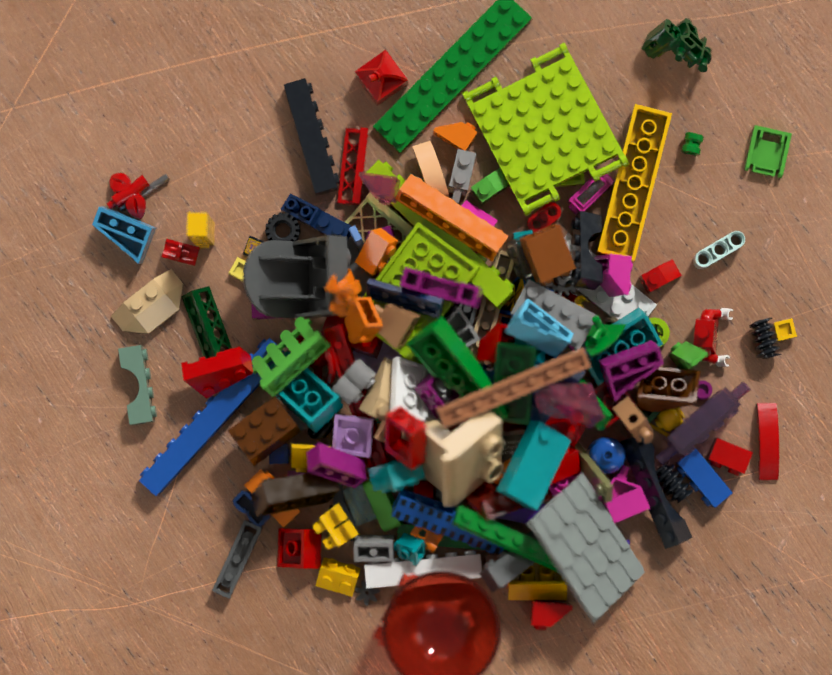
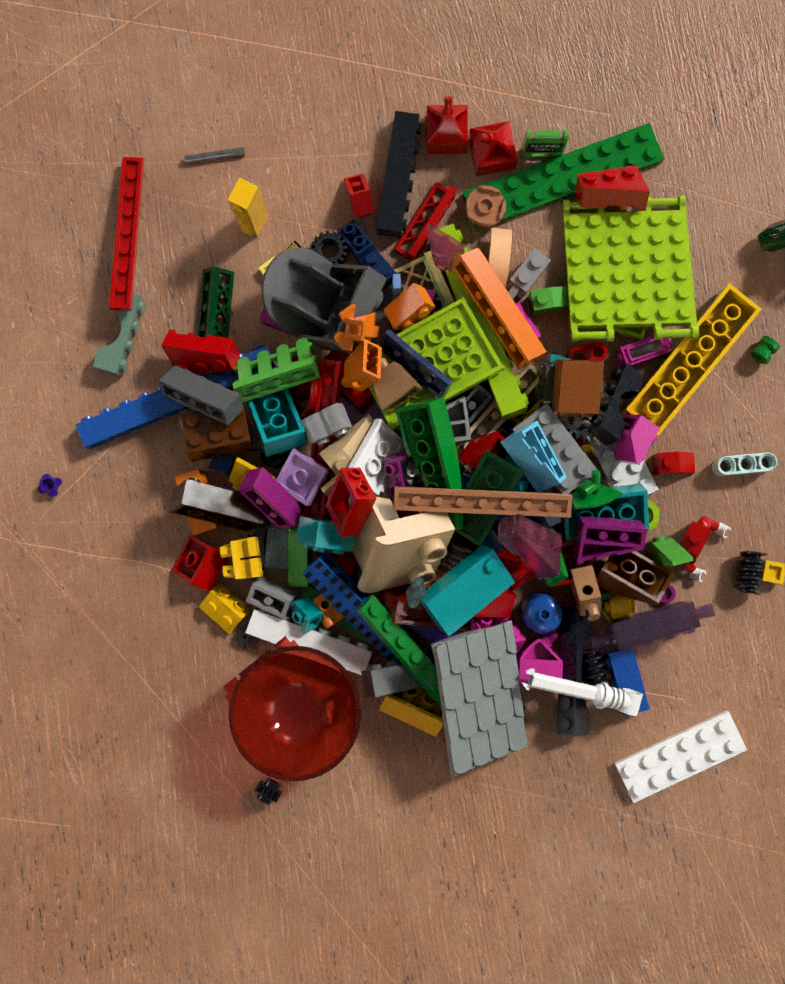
camera: 25 degrees right, 0 degrees up
(103, 297) = (126, 234): none -> red plate
(126, 232) = (179, 184): dark azure wedge -> none
(128, 194) = (198, 149): red plant -> none
(143, 539) = (46, 480): none -> dark purple plate
(150, 304) = (171, 262): tan wedge -> none
(180, 252) = (221, 226): red hips -> none
(237, 406) = (201, 395): none -> dark grey brick
(237, 559) = (135, 545): dark grey piece -> none
(245, 505) = (164, 495): dark blue brick -> none
(285, 170) = (359, 195): none -> red slope
(334, 78) = (447, 128): none -> red piece
(399, 131) = (485, 206): none -> nougat tile
(424, 55) = (544, 144): none -> bright green container
(441, 288) = (465, 378): magenta arch -> none
(457, 134) = (539, 235): orange slope -> none
(493, 486) = (415, 592): none -> clear light blue tile
(499, 65) = (612, 187): none -> red wedge
(547, 613) = (411, 742): red slope -> none
(594, 475) = (522, 629): olive plate -> none
(686, 499) = (601, 694): none -> white piece
(730, 456) = (662, 671): red piece -> none
(768, 441) = (707, 675): red slope -> none
(778, 520) = (680, 756): none -> white plate

